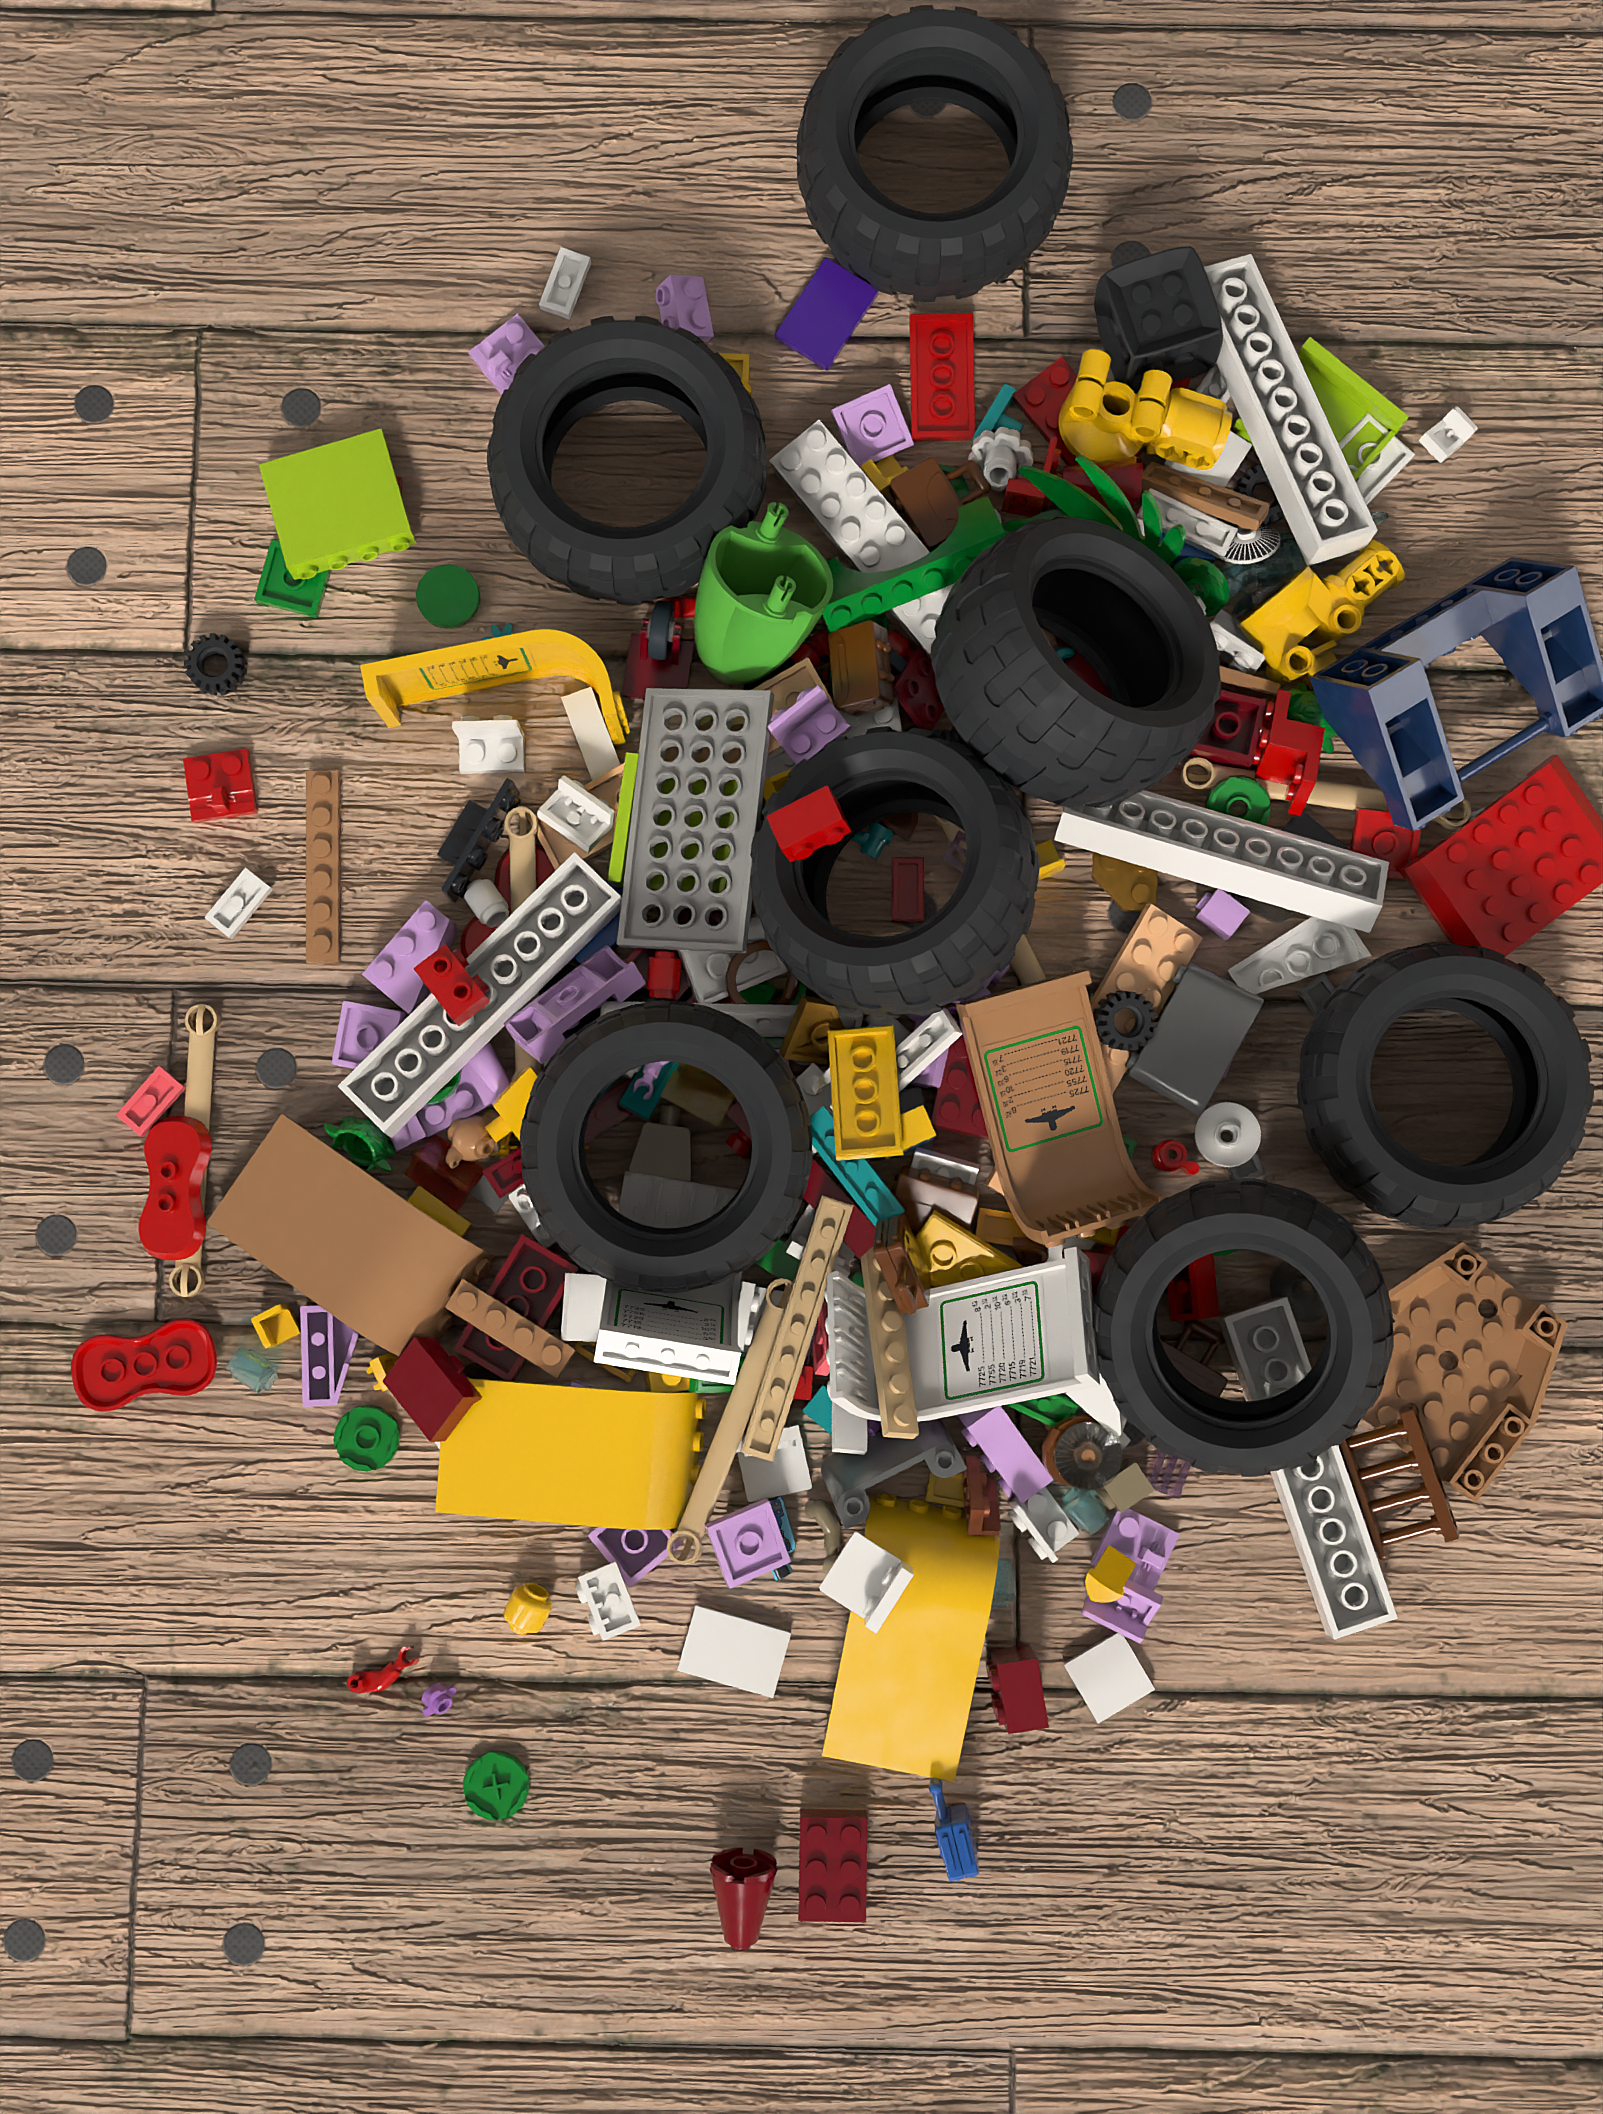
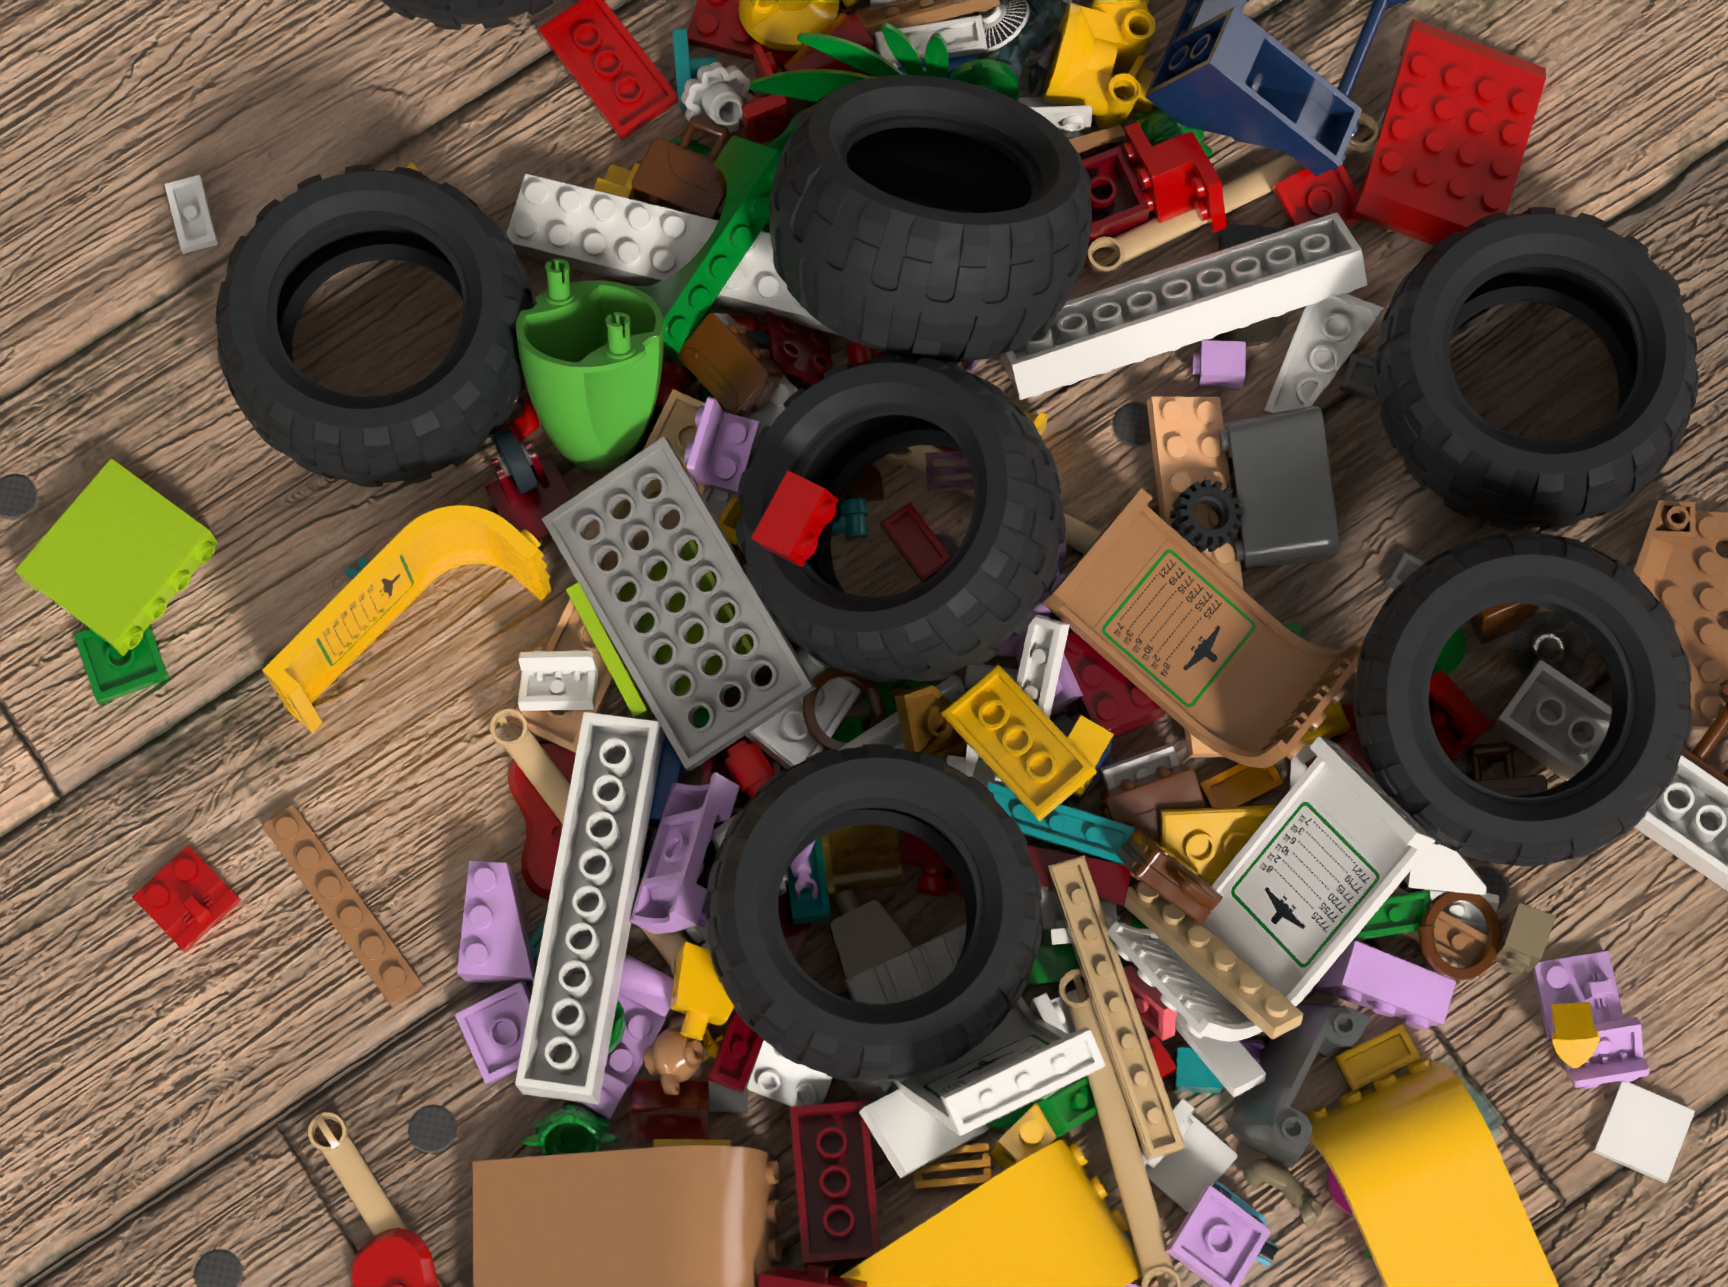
camera: 35 degrees left, 10 degrees down
(151, 1101) = (332, 1244): coral plate -> none
(202, 651) = (86, 771): black tyre -> none
(238, 903) = (284, 996): white plate -> none
(448, 596) = (283, 572): green tile -> none
(452, 985) = (559, 909): red brick -> none
(472, 836) = (466, 775): black bracket -> none
(487, 902) = (529, 825): white brick -> none
(490, 745) = (424, 678): white bracket -> none
(504, 351) = (184, 316): lavender hinge -> none
(510, 1328) = (844, 1202): medium nougat plate -> none
(591, 732) = (512, 604): white tile -> none
(685, 305) = (316, 153): lavender bracket -> none
(826, 314) = (459, 81): dark purple tile -> none
(867, 1580) = (1357, 1183): white bracket -> none
(872, 426) = (576, 148): lavender hinge -> none
(980, 1500) = (1402, 1046): copper bracket -> none
(1018, 1688) = (1569, 1194): dark red brick -> none
(1029, 1252) = (1275, 785): reddish brown tile -> none
(1045, 1523) = (1476, 1031): white bracket -> none
(1084, 1509) = (1504, 990): clear light blue brick -> none
(1088, 1437) = (1467, 910): clear smoke dish -> none
(1125, 882) = (1110, 396): pearl gold plate -> none
(1163, 1488) = (1564, 880): clear purple tile -> none
(1171, 1156) = (1340, 611): red piece -> none
(1232, 1119) = (1373, 540): white dish -> none
(1240, 788) = (1158, 238): green tile -> none

